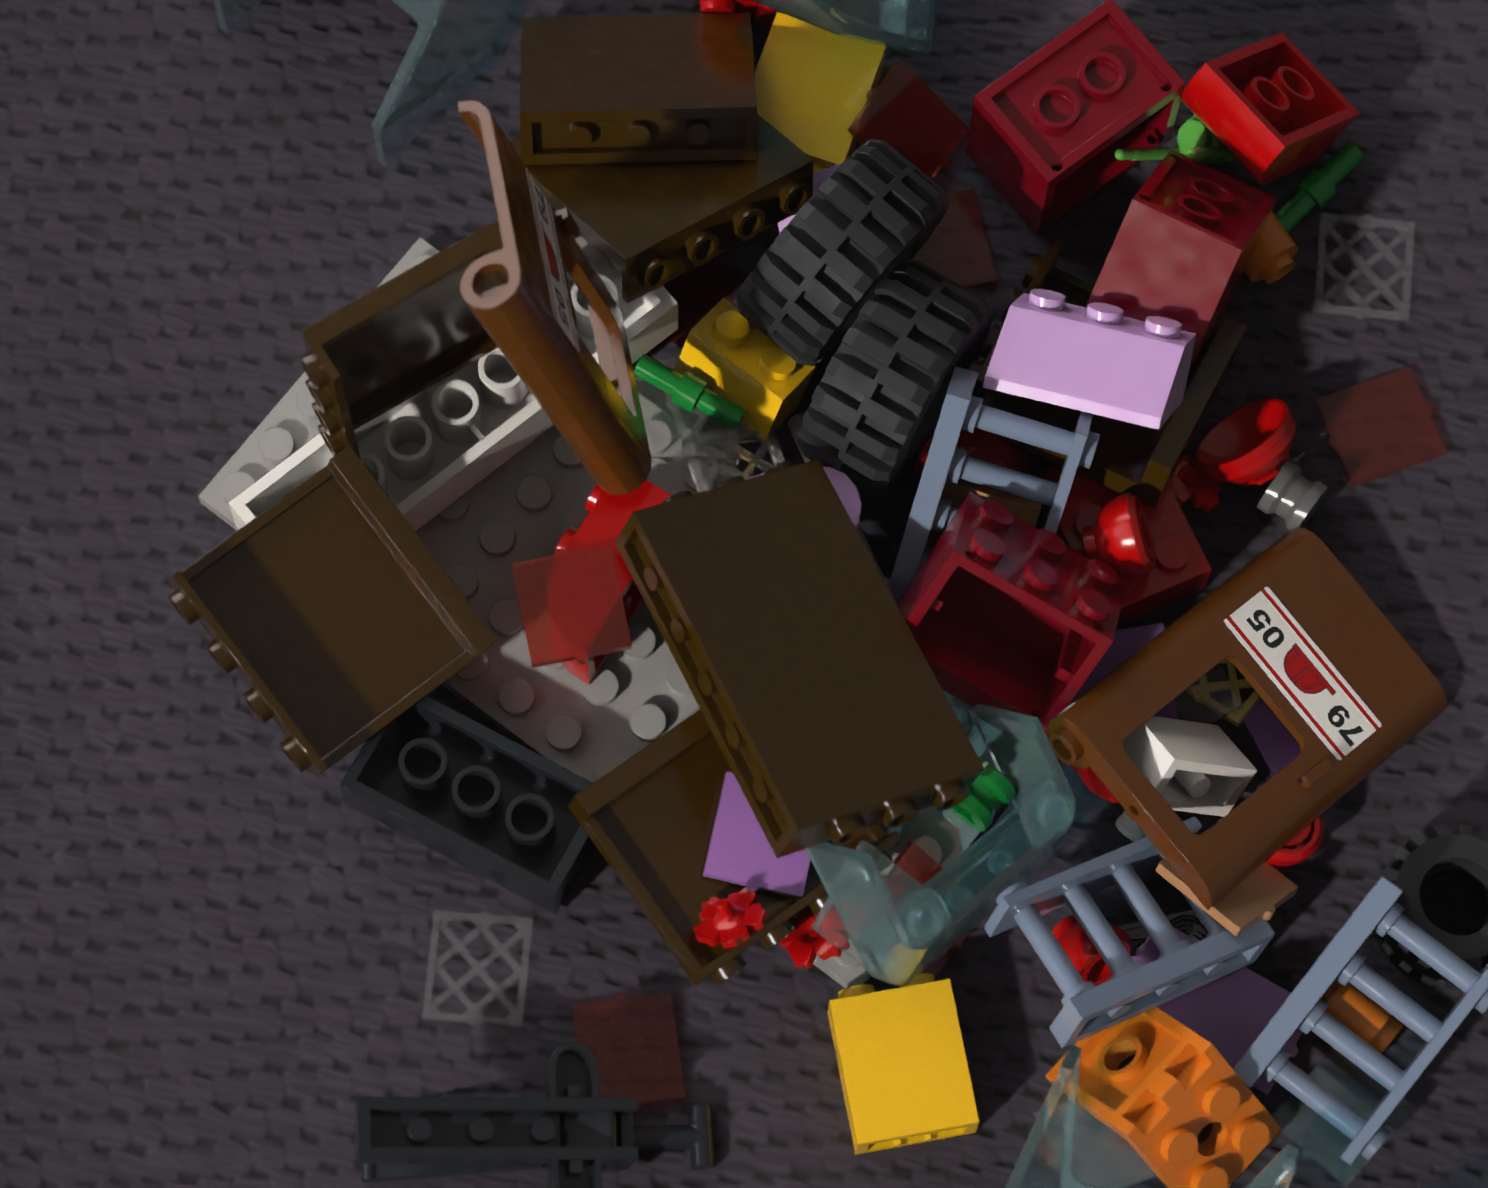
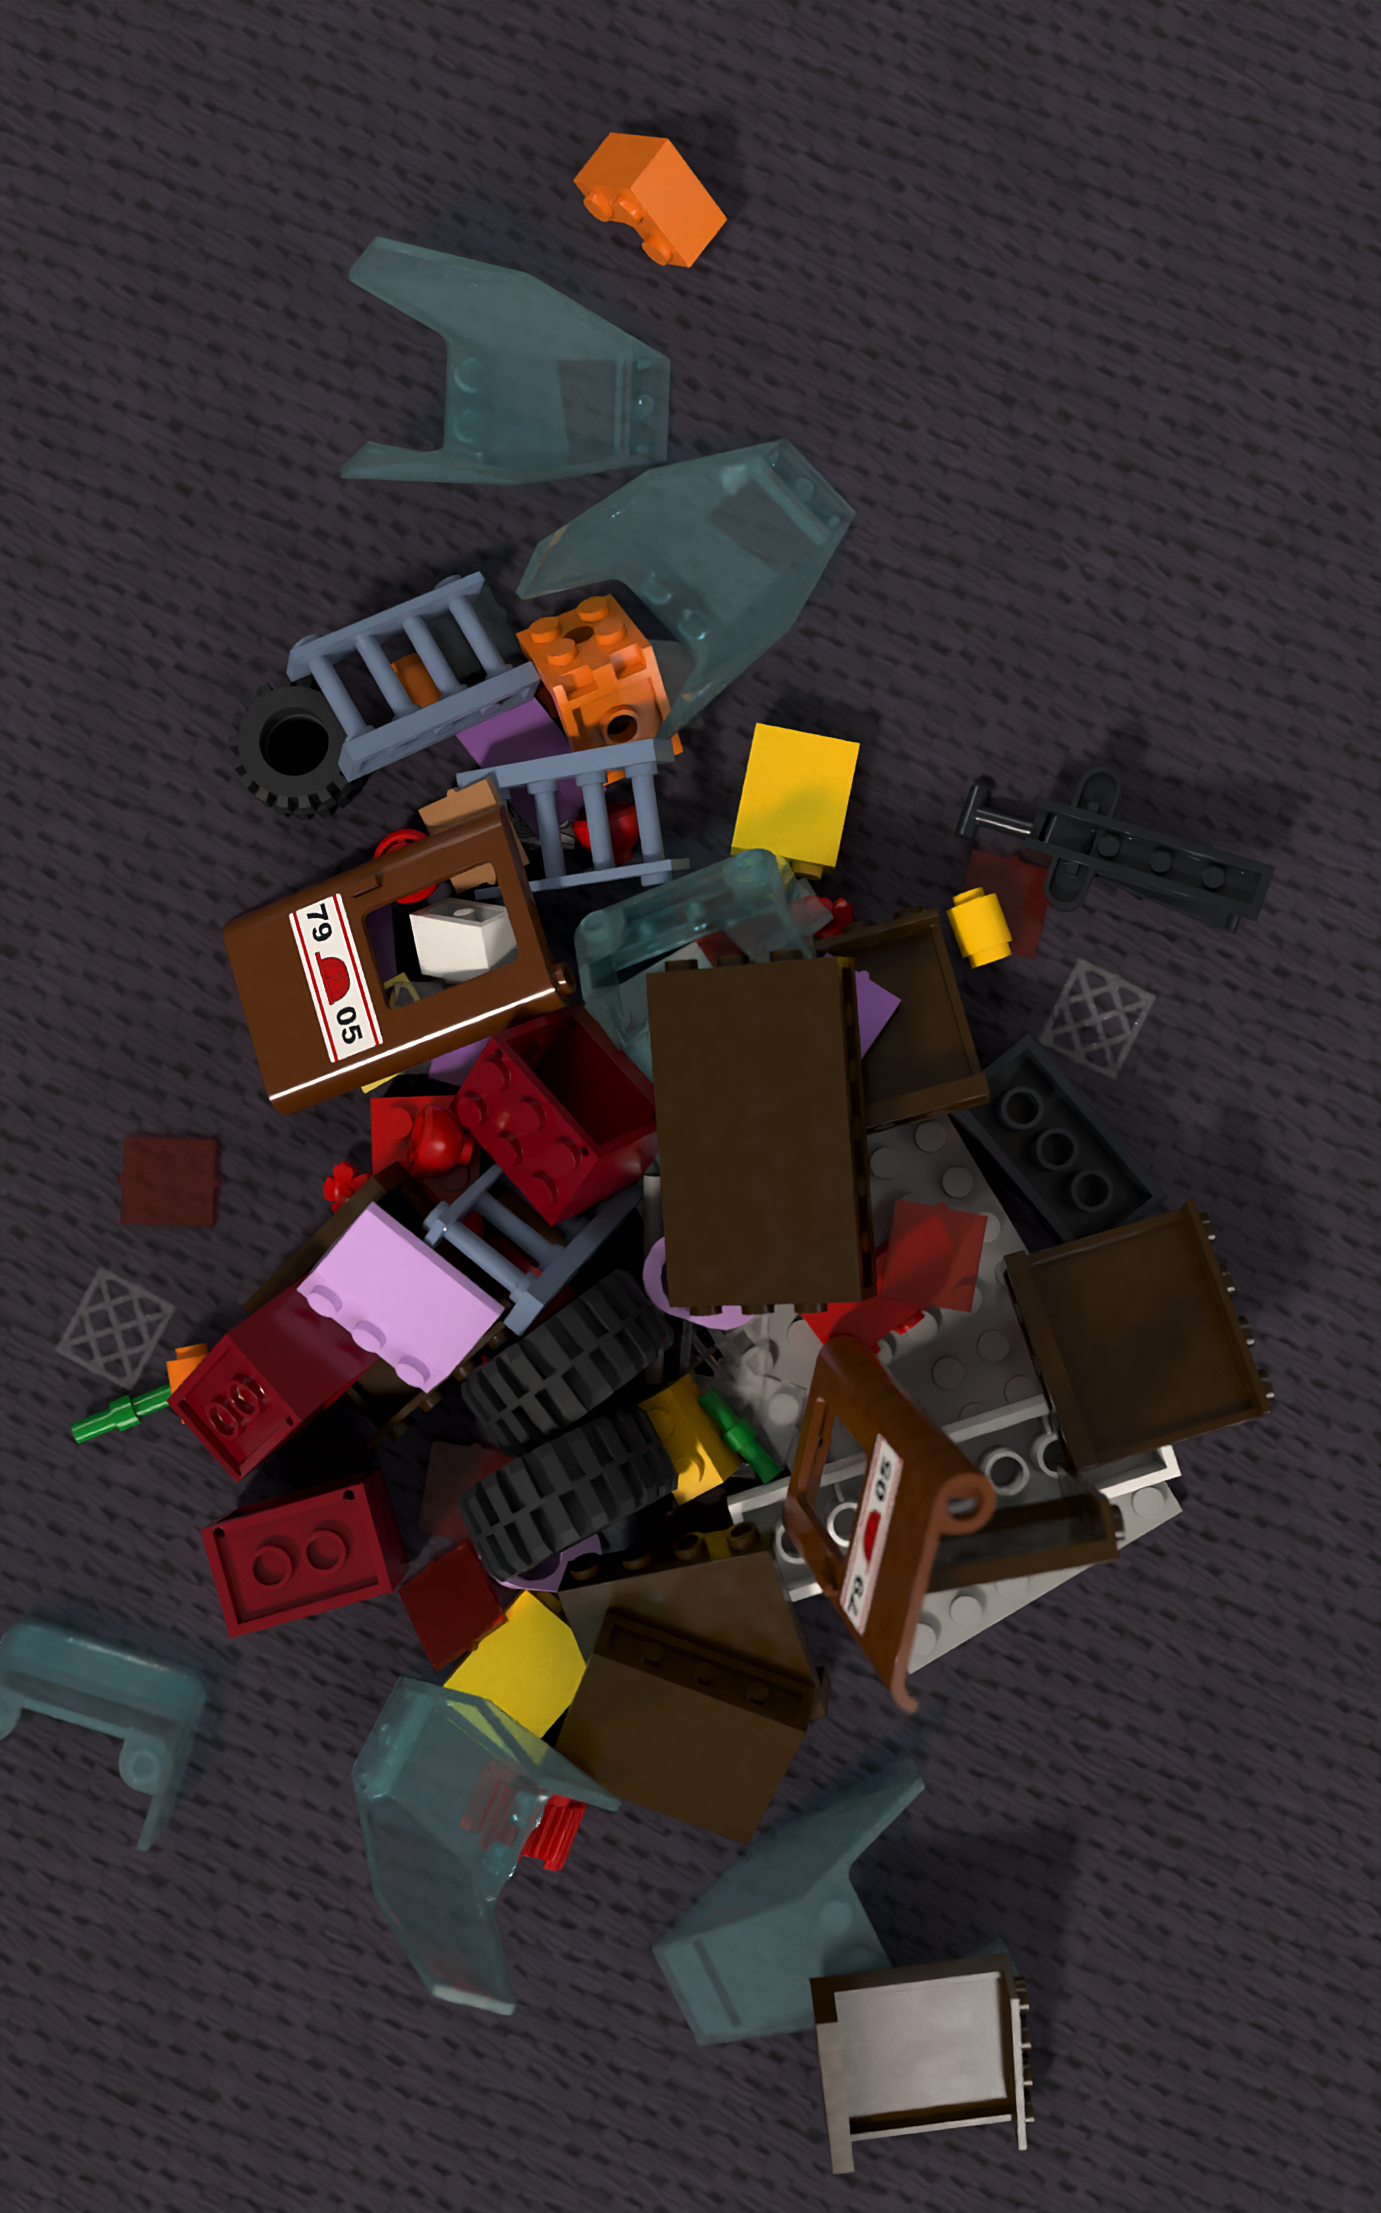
camera: 160 degrees left, 15 degrees up
(645, 1004) = (979, 927): none -> yellow brick
(730, 919) = (896, 951): red plant -> none
(986, 794) = (634, 984): green wheel -> none
(1193, 141) = (204, 1494): bright green plant -> none
(1248, 444) = (289, 1213): red piece -> none
(1269, 107) = (132, 1491): red brick -> none
(1292, 496) = (271, 1144): dark grey wheel -> none

